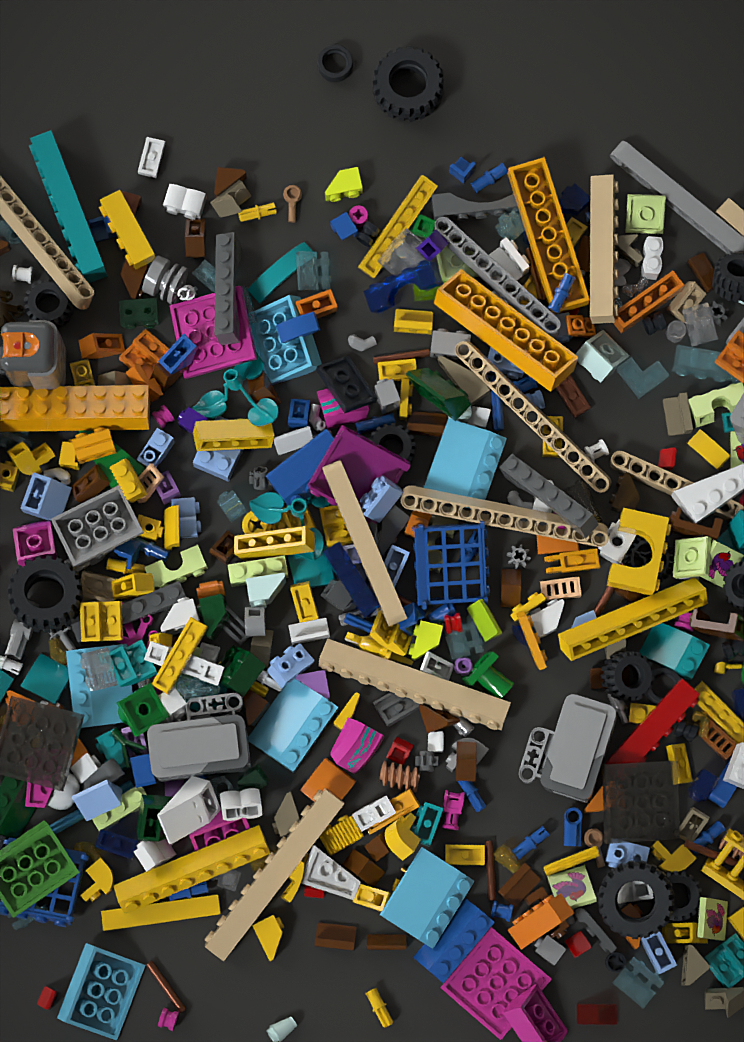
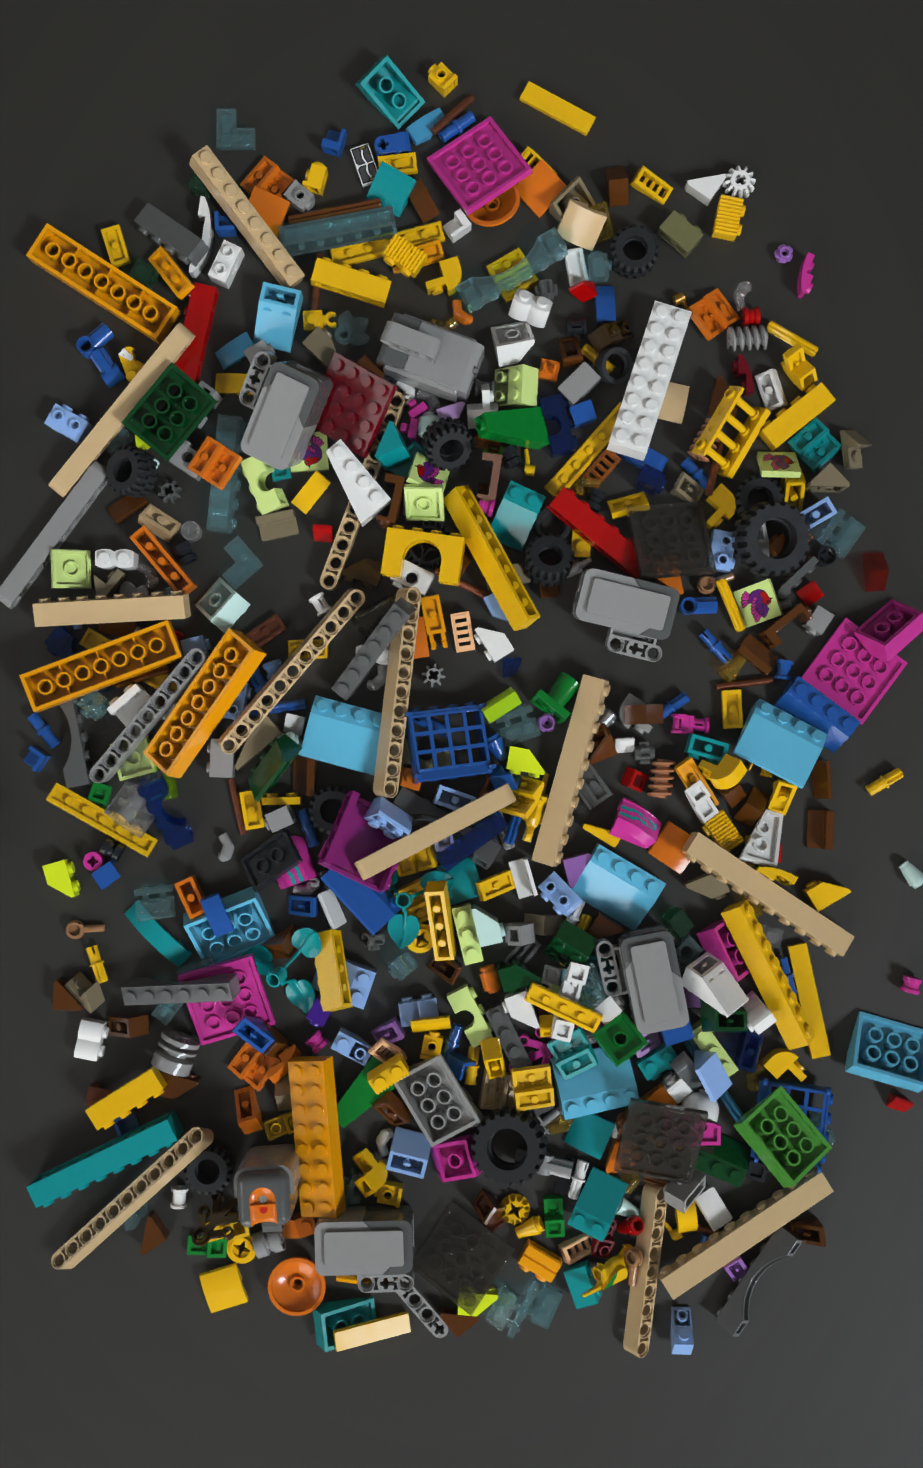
camera: 90 degrees left, 10 degrees up
(68, 456) = (362, 1131): yellow brick -> none
(93, 445) = (354, 1111): light orange brick -> none
(98, 669) = (581, 1086): clear brick -> none
(130, 744) = (649, 1054): dark green plant -> none
(139, 313) = (211, 1075): clear green brick -> none
(151, 157) = (46, 1077): white plate -> none
(166, 987) = (879, 989): copper bar -> none
(187, 292) = (187, 1029): white axle -> none
(241, 804) = (704, 933): white brick -> none
(413, 321) = (200, 797): yellow panel -> none
(432, 245) = (120, 783): dark purple brick -> none
(436, 666) = (550, 749): white slope -> none
(453, 623) = (507, 736): red wheel -> none
(510, 587) = (465, 681): reddish brown slope -> none
(532, 640) = (518, 656): light orange plate -> none
(534, 601) = (477, 656): yellow plate -> none
(540, 920) = (797, 630): orange brick -> none
(561, 293) = (162, 648): blue pin -> none
(580, 326) = (194, 628): orange slope -> none
(700, 324) = (183, 507): clear brick -> none

